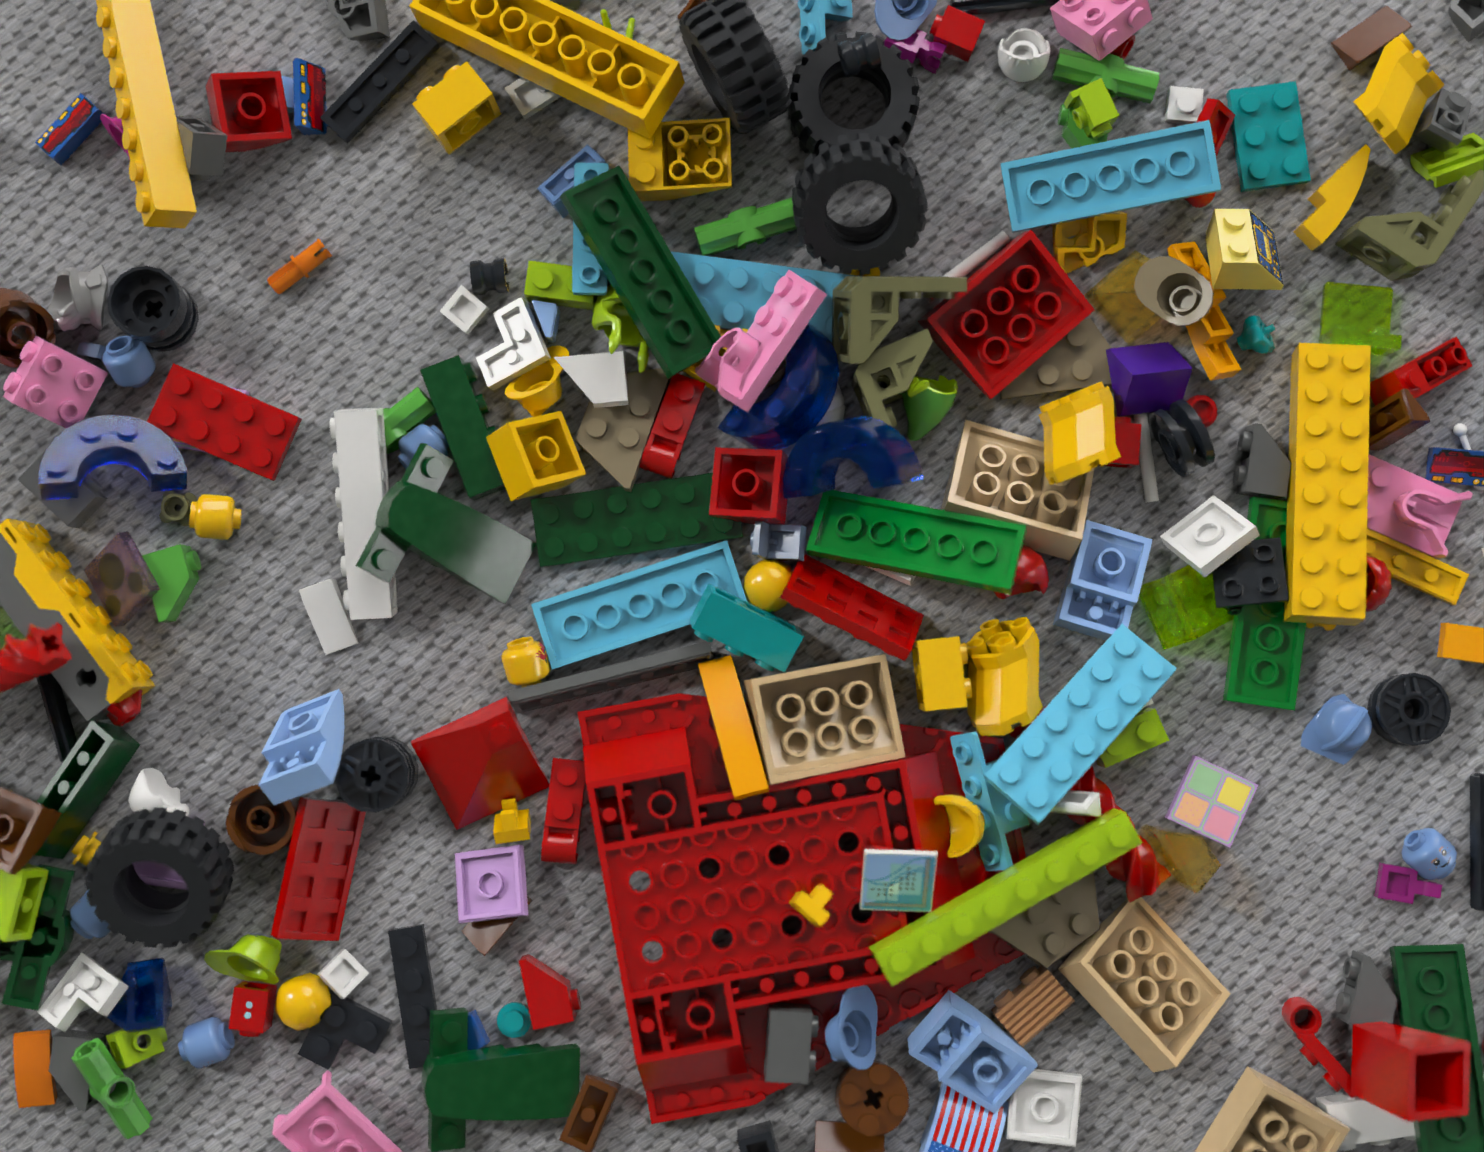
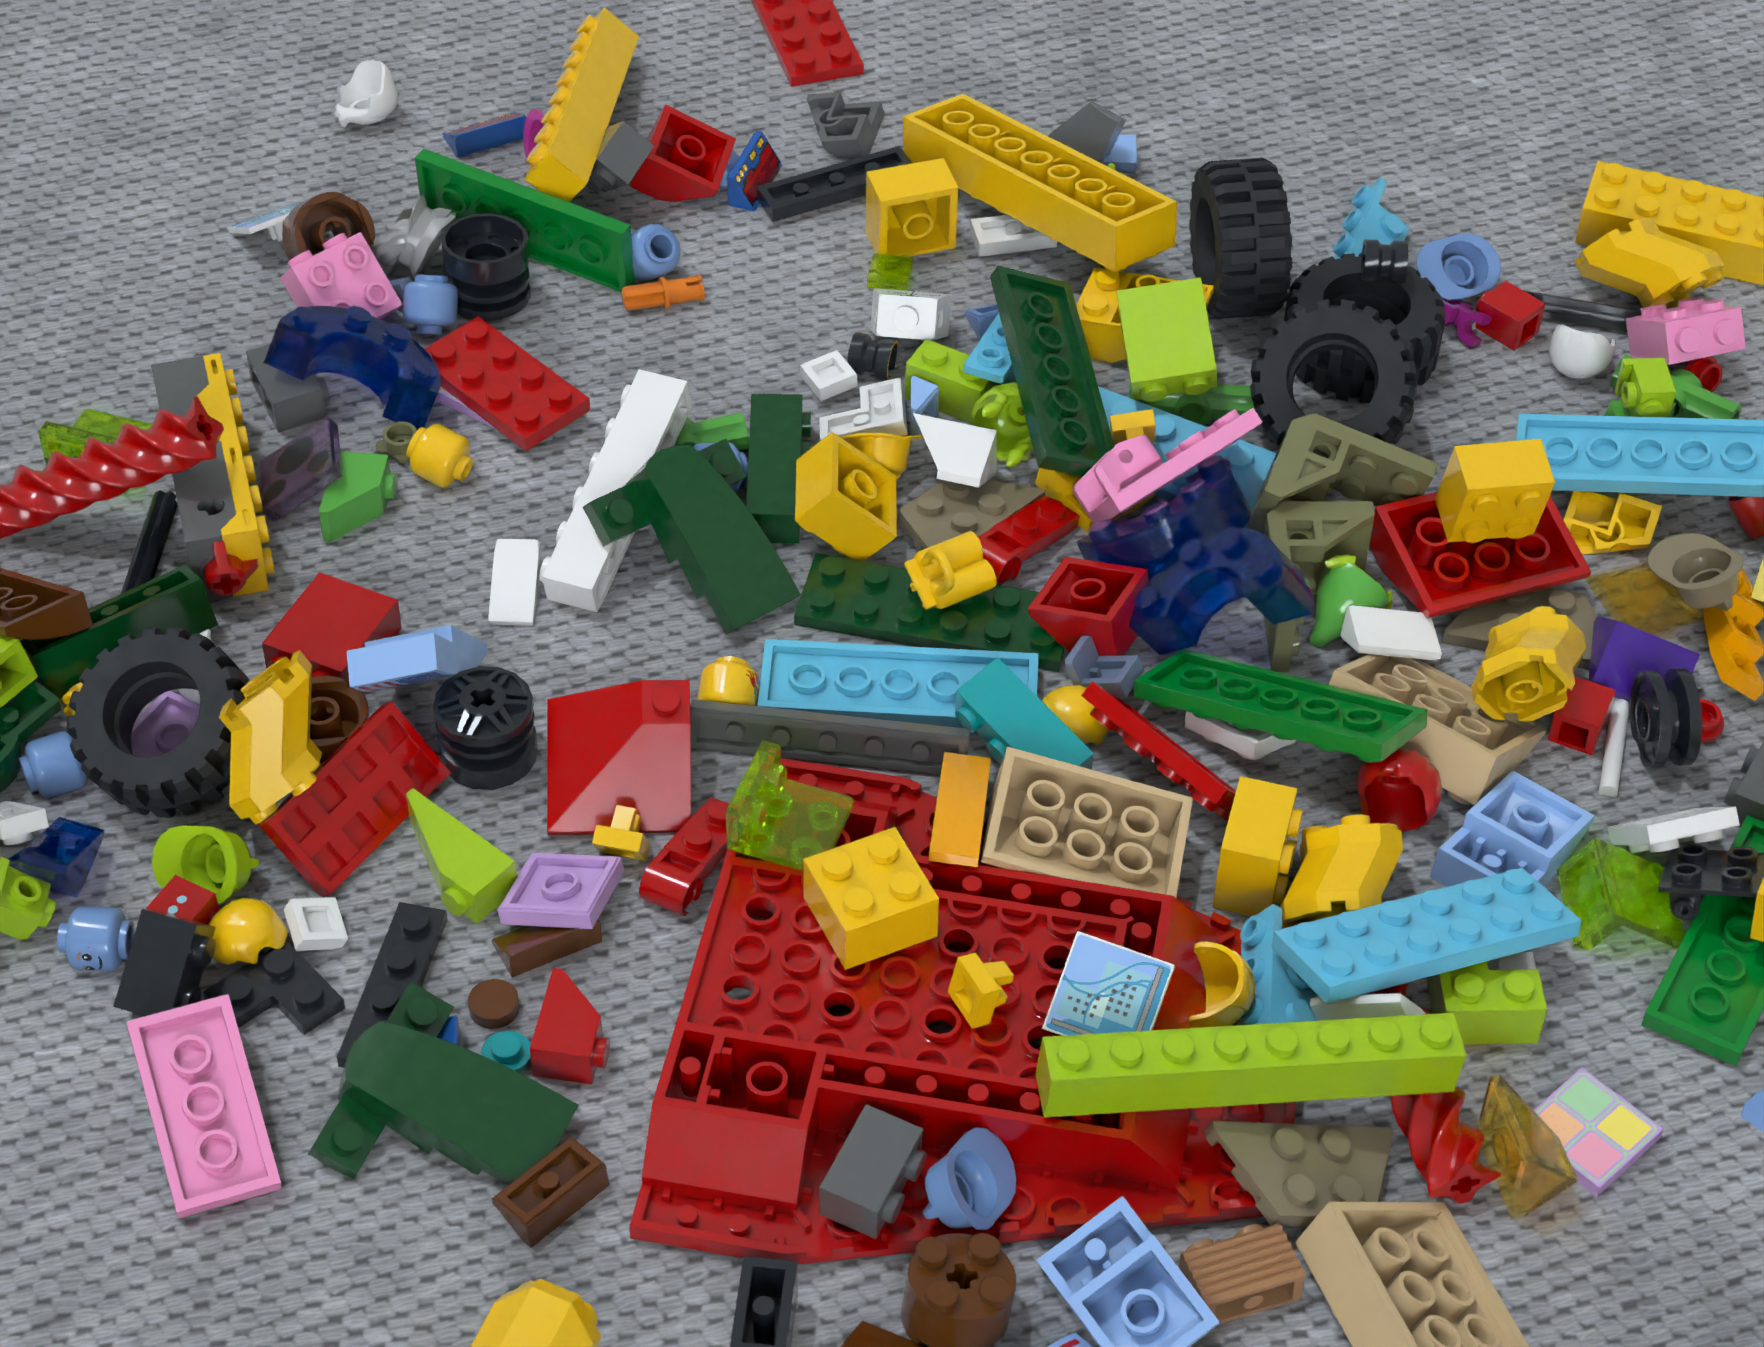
camera: 20 degrees right, 40 degrees down
(168, 245) = (556, 229): none -> green plate
(225, 725) = (328, 622): none -> red brick
(247, 885) = (271, 738): none -> yellow brick
(268, 1062) = (165, 963): none -> black brick
(271, 234) = (654, 252): none -> medium blue head
(411, 886) = (465, 866): none -> lime slope
(463, 167) = (890, 272): none -> clear neon green tile
(487, 982) = (493, 1003): none -> reddish brown tile
(502, 228) = (910, 314): none -> white torso
(630, 810) = (780, 816): none -> clear neon green bracket
(639, 501) = (950, 571): none -> yellow piece
(713, 862) = (870, 898): none -> yellow brick
(717, 206) = (1167, 339): none -> lime brick
(722, 303) = (1132, 425): none -> yellow tile
(968, 424) = (1390, 633): none -> white slope
(1016, 291) = (1494, 490): none -> yellow brick

